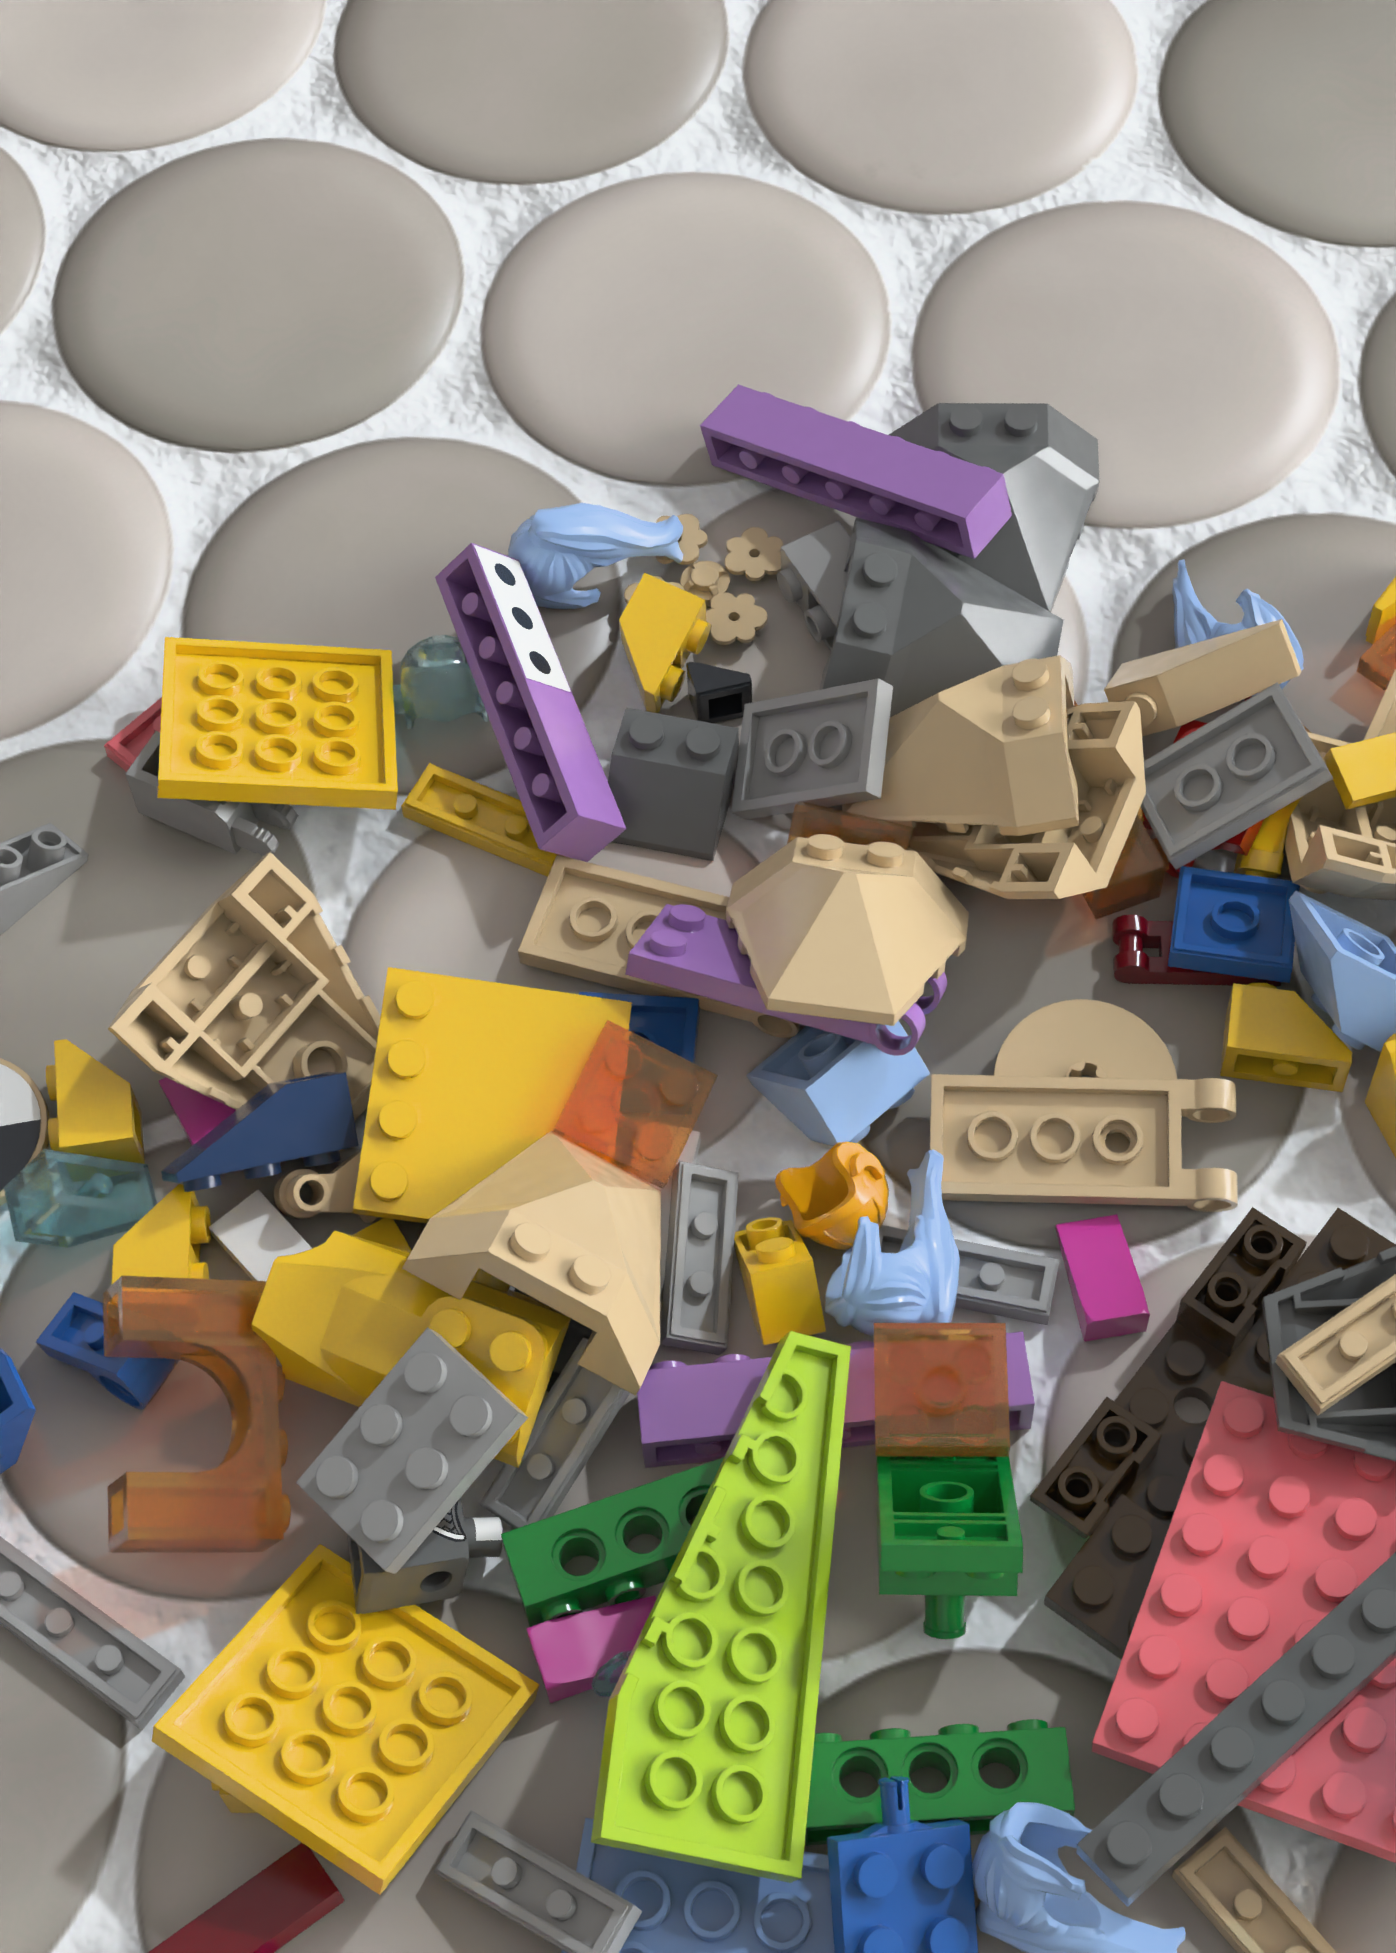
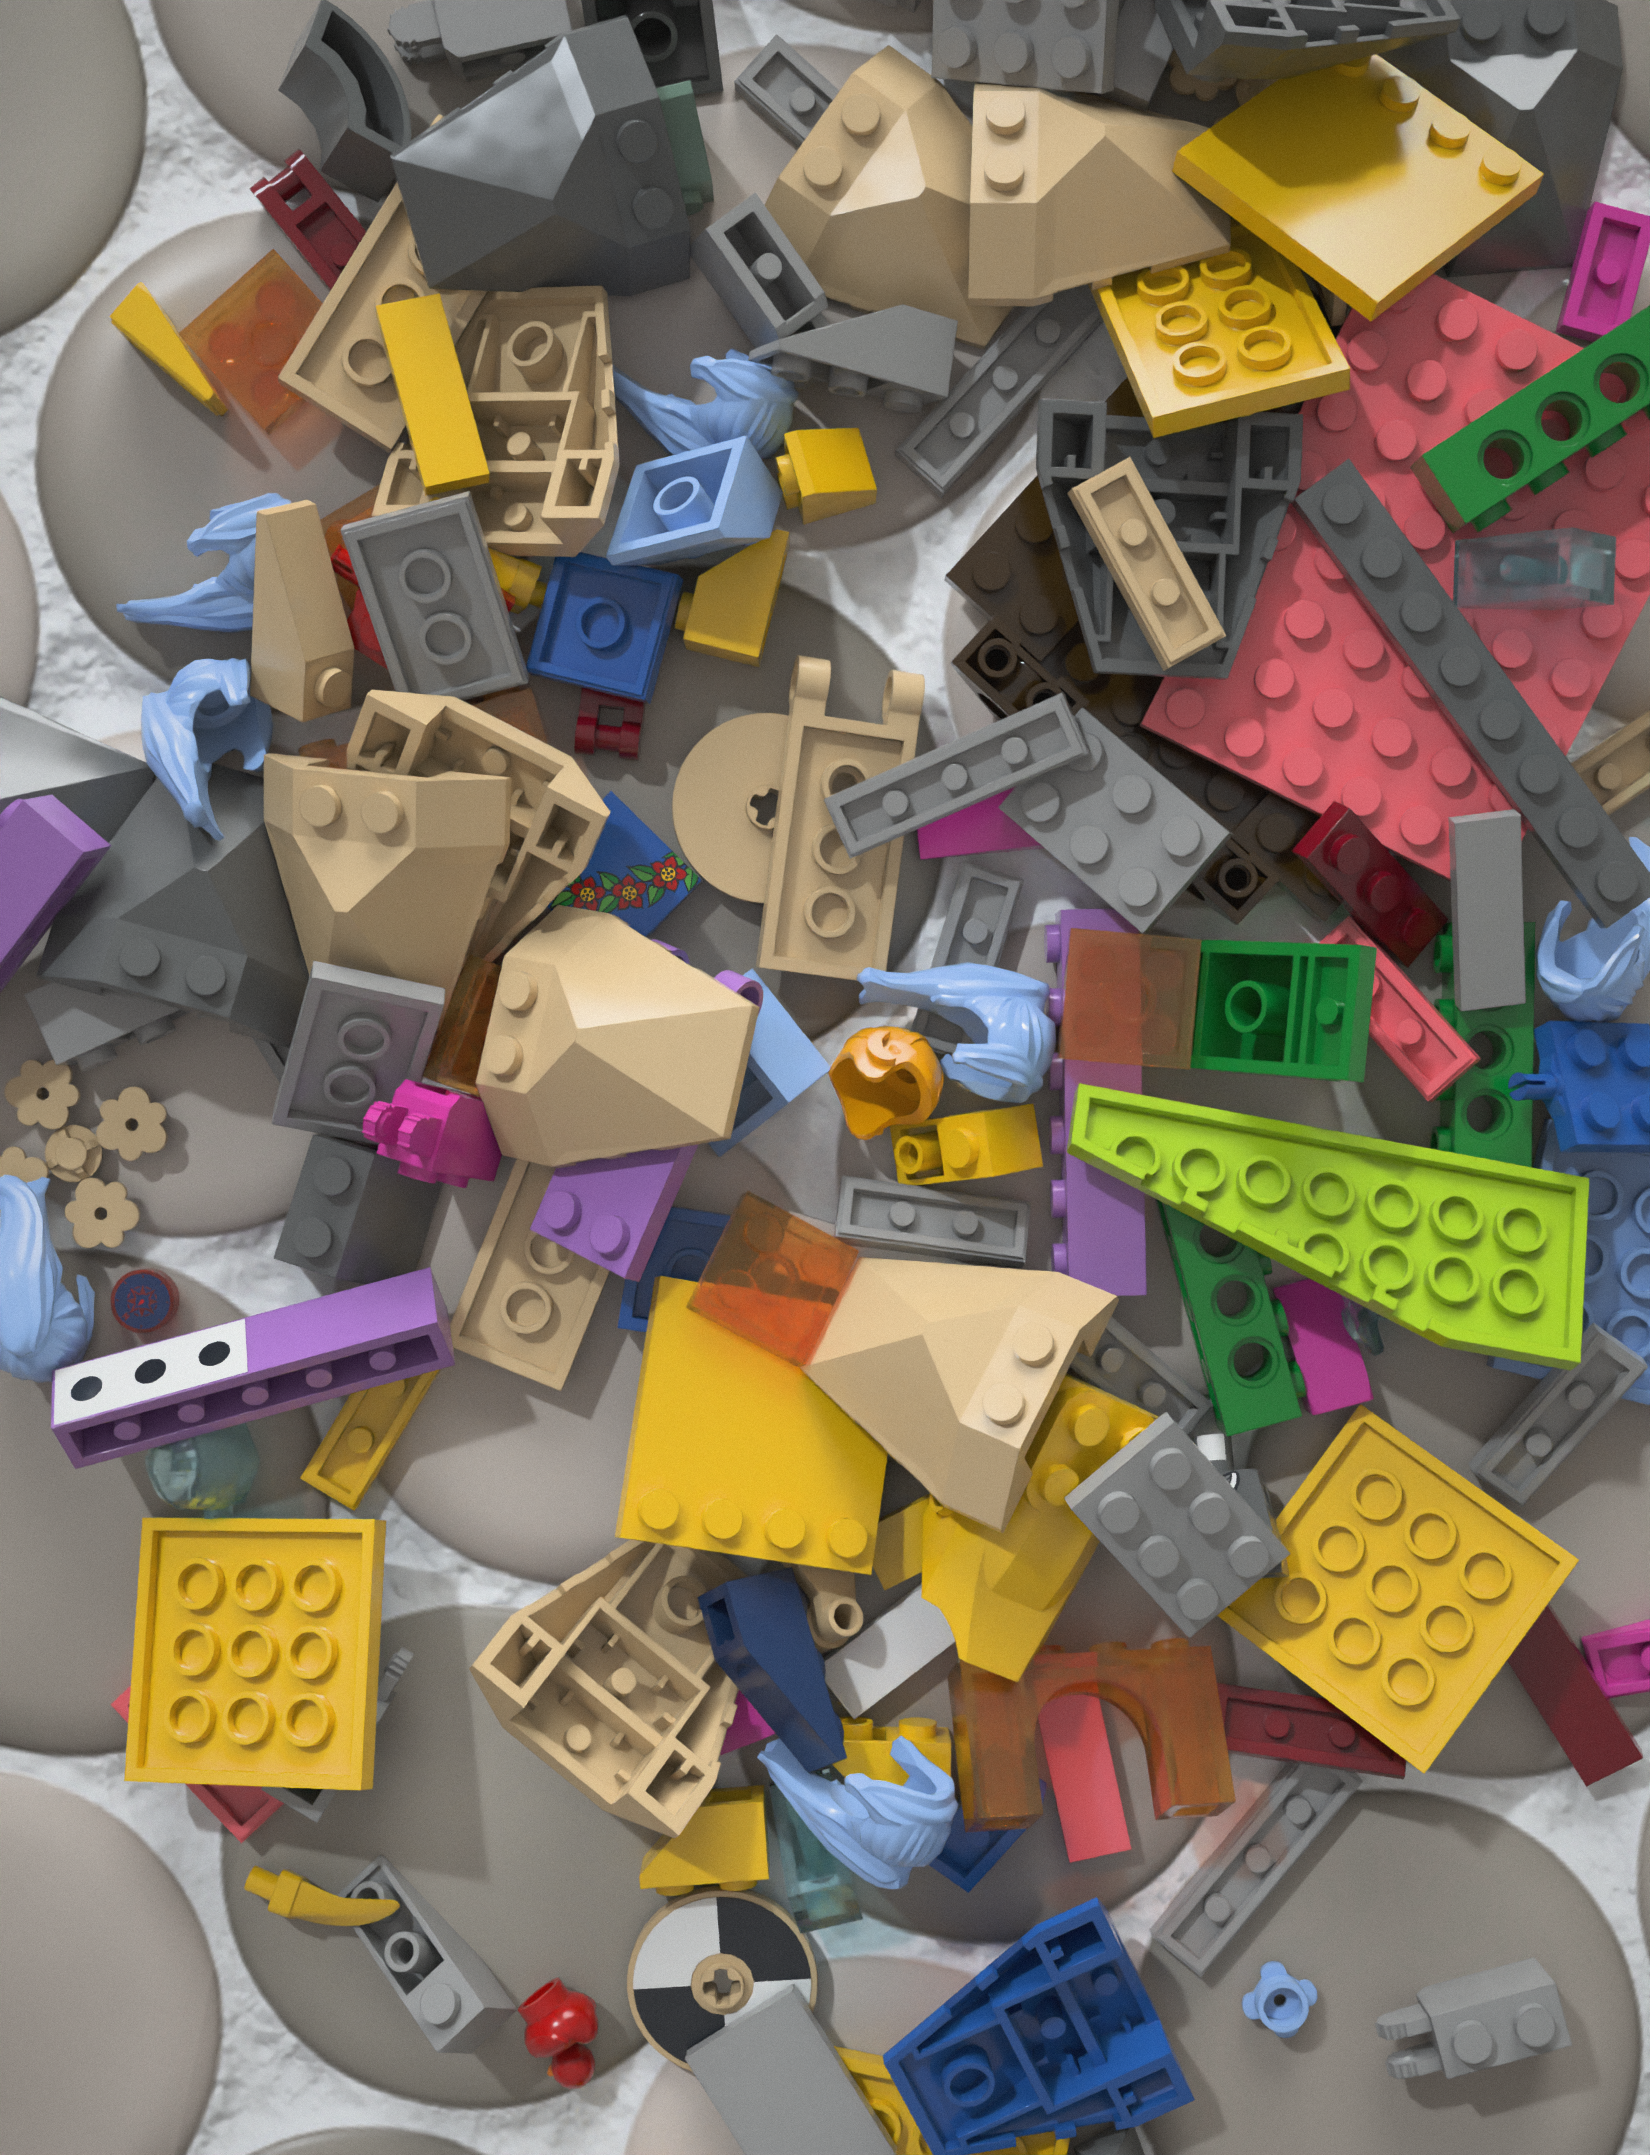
camera: 90 degrees left, 30 degrees up
(53, 788) = (296, 1897): none -> yellow bar
(110, 1214) = (871, 1823): none -> light blue hair
(157, 1441) = (1083, 1777): none -> coral tile
(194, 1627) = (1302, 1732): none -> dark red plate
(581, 641) = (144, 1300): none -> tile
(659, 634) = (166, 1216): yellow slope -> none
(717, 692) = (239, 1149): black slope -> none
(748, 811) = (435, 1134): none -> dark pink hinge
(961, 1674) = (1408, 1023): none -> coral tile
(1006, 965) = (630, 874): none -> tile
(1079, 1729) = (1487, 909): none -> light grey tile
(1086, 620) = (199, 722): none -> light blue hair
(1090, 1631) = (1370, 884): none -> dark red plate
(1118, 1366) = (1118, 825): none -> light grey plate
(1143, 1216) = (957, 775): none -> light grey tile

